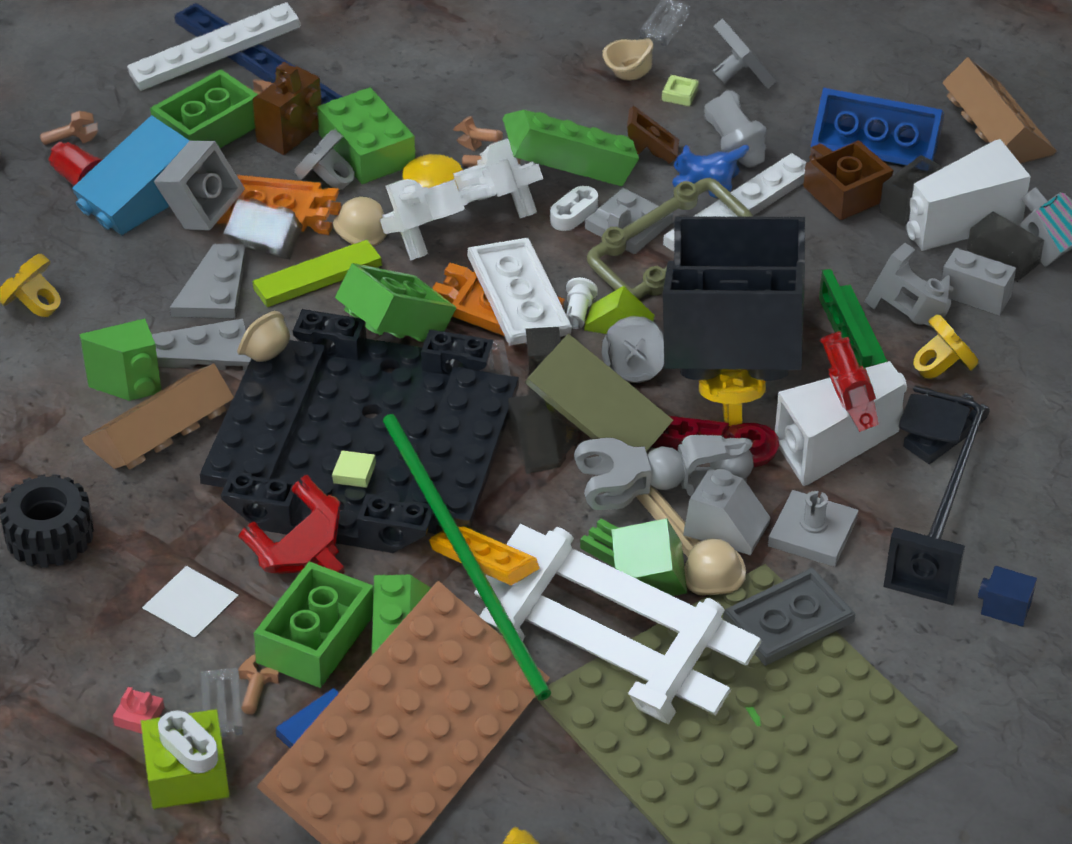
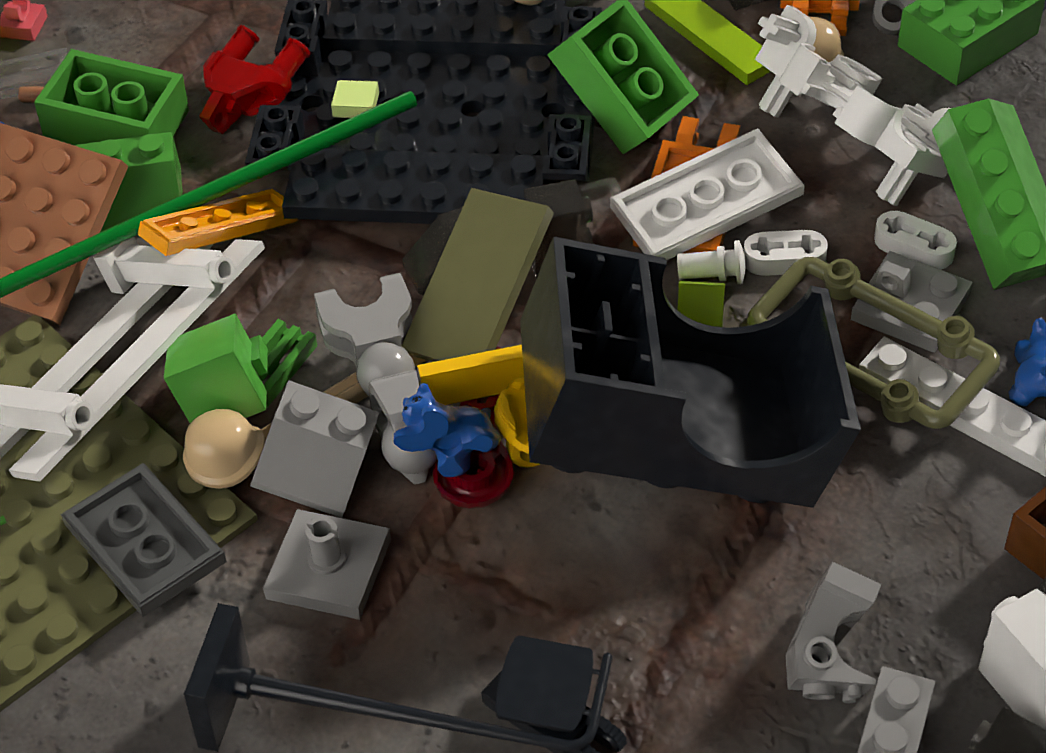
camera: 85 degrees right, 5 degrees up
(190, 601) = (178, 31): white sticker -> none
(431, 170) = (931, 90): yellow dish -> none
(474, 135) = (1024, 109): nougat bar -> none
(565, 269) = (781, 250): none -> white beam
(678, 405) = (472, 375): none -> yellow tile
(743, 420) = (446, 430): none -> blue animal
(819, 433) = (503, 551): white slope -> none
(849, 318) = (740, 578): green fence -> none
(850, 381) = (482, 513): red connector -> none
(946, 348) = (713, 696): yellow tile -> none

